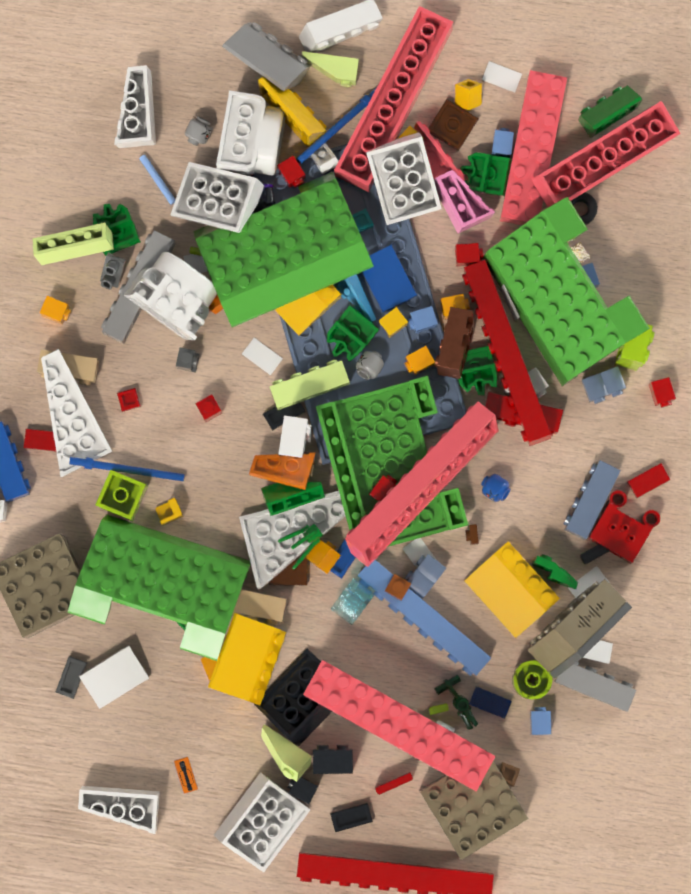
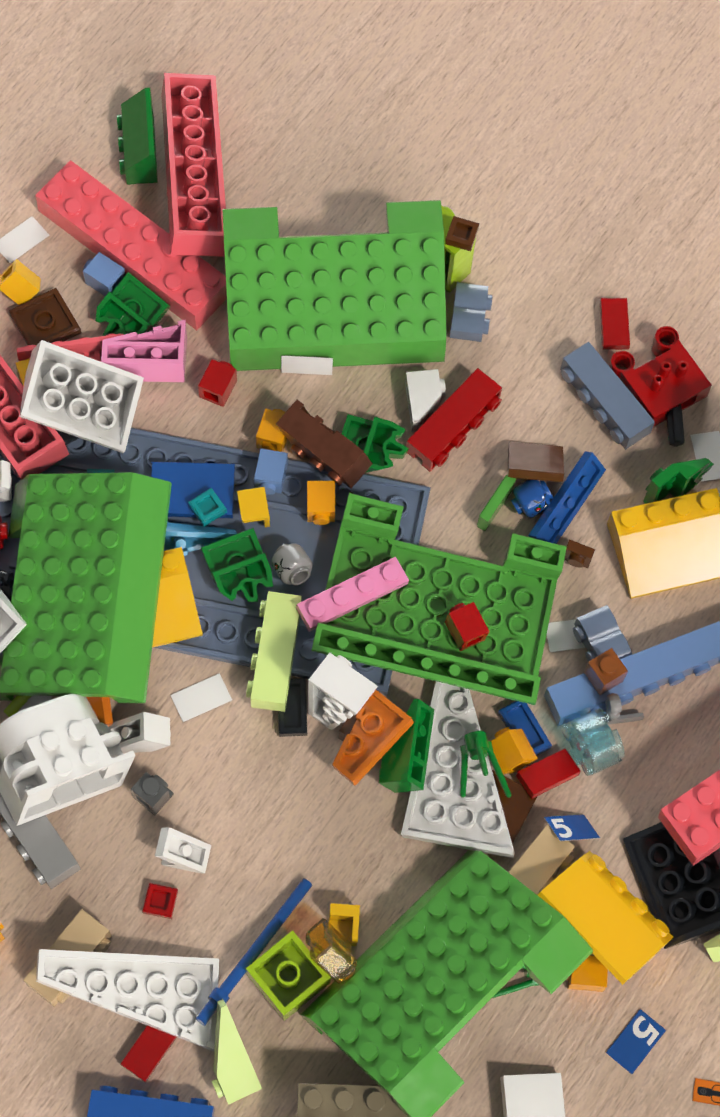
camera: 65 degrees left, 15 degrees down
(56, 491) = (231, 1062): none -> yellowish green slope
(146, 512) = (331, 951): none -> clear yellow brick
(162, 396) = (182, 851): none -> white slope
(191, 713) = (636, 1041): none -> blue sticker
(208, 408) = (233, 797): red brick -> none
(218, 333) = (143, 732): none -> white slope
(294, 614) = (572, 827): none -> blue sticker
(322, 584) = (548, 773): none -> red tile
(367, 411) = (352, 594): none -> bright pink plate
(378, 294) = (207, 507): none -> teal tile
(378, 604) = (613, 708): none -> light grey piece
(422, 484) = (487, 572): coral brick -> none
(482, 467) = (495, 502): none -> bright green tile
(504, 511) = (568, 499): none -> blue plate
(507, 353) = (371, 393): red brick -> none
(520, 478) = (535, 461): none -> reddish brown tile
(634, 354) = (462, 233): none -> reddish brown plate
(662, 392) = (515, 253): red brick -> none

